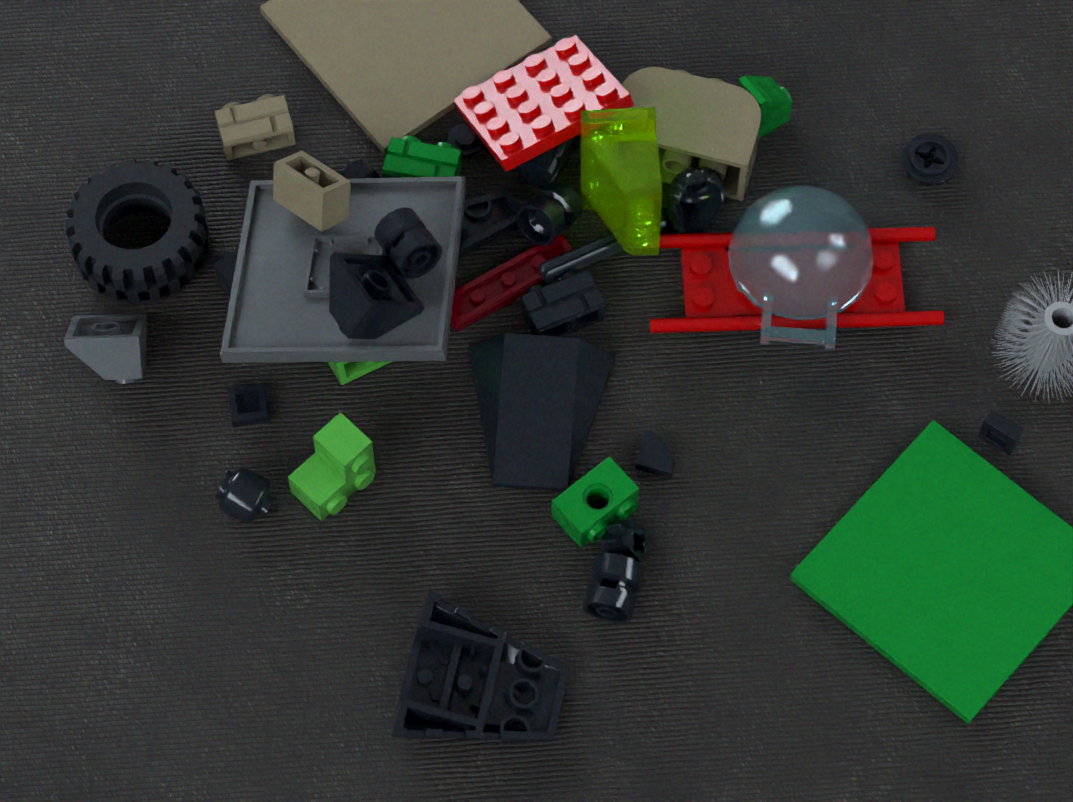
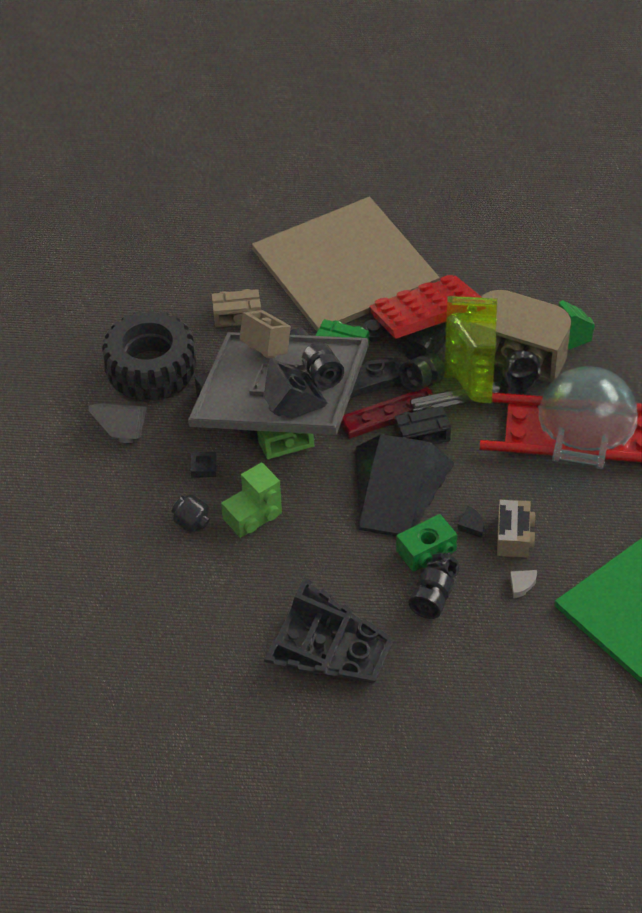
camera: 10 degrees right, 15 degrees down
(718, 462) = (514, 528): none -> brick
(739, 547) = (522, 582): none -> light grey tile

